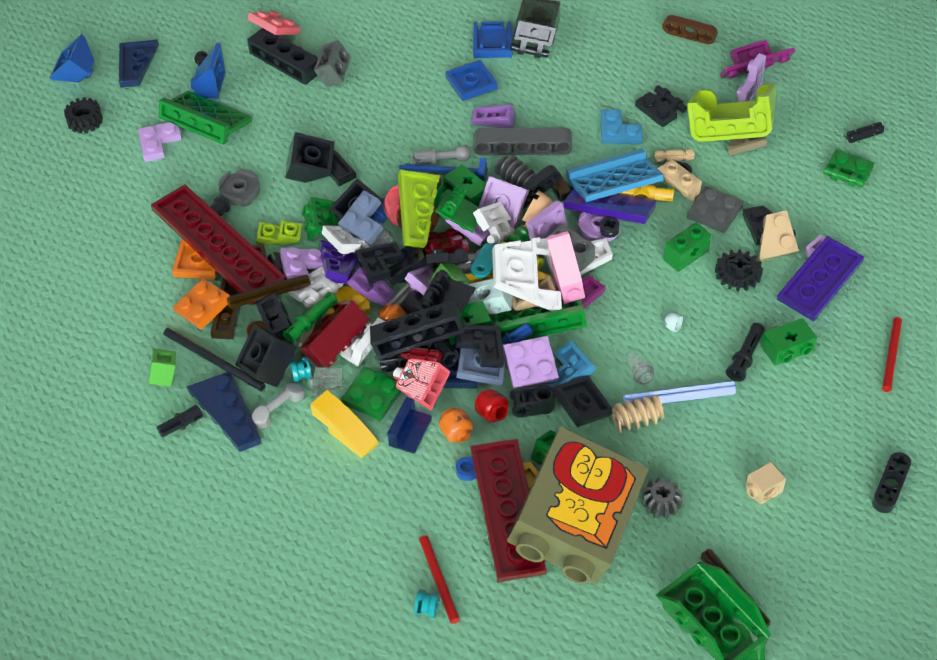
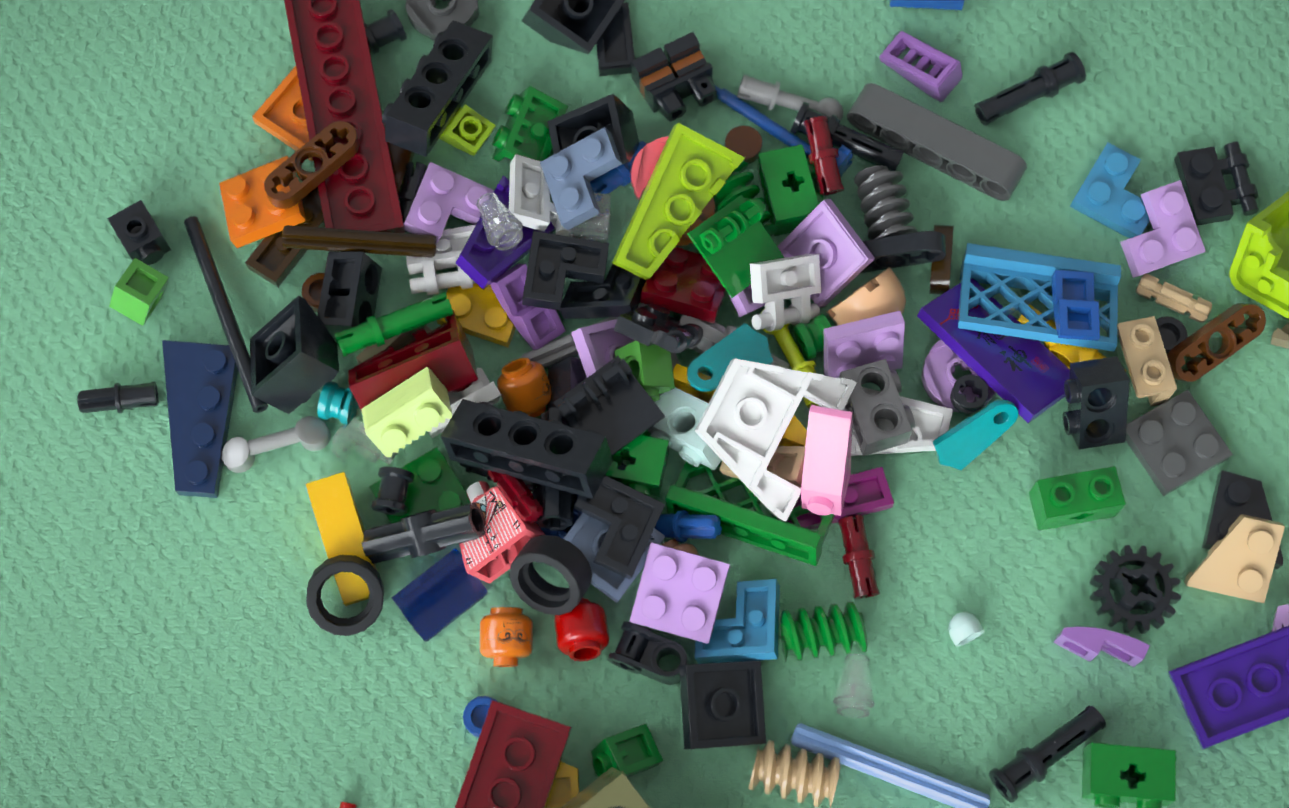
camera: 30 degrees right, 20 degrees up
(141, 345) = (139, 233): none -> black brick
(223, 278) = (313, 148): none -> reddish brown beam
(264, 215) = (437, 88): none -> black brick
(337, 251) = (500, 224): none -> clear cone
(345, 344) = (407, 412): none -> yellowish green brick
(356, 384) = (393, 491): none -> black bush
(369, 429) = (351, 625): none -> black tyre
(378, 167) = (674, 75): none -> black hips
(386, 396) = (424, 533): none -> black piece
(466, 398) = (564, 558): none -> black tyre
(469, 157) = (858, 143): none -> black pin
(475, 163) = (823, 155): none -> dark red pin
(556, 99) = (1044, 82): none -> black pin
(603, 316) = (858, 557): none -> dark red pin
(609, 350) = (822, 630): none -> green piece
(623, 241) = (975, 434): none -> teal piece
(633, 168) = (1075, 305): none -> blue slope
(655, 130) = (1173, 232): none -> lavender plate
(670, 202) = (1096, 402): none -> black brick
(710, 158) = (1231, 341): none -> reddish brown beam
(743, 295) = (1089, 641): none -> medium lavender slope

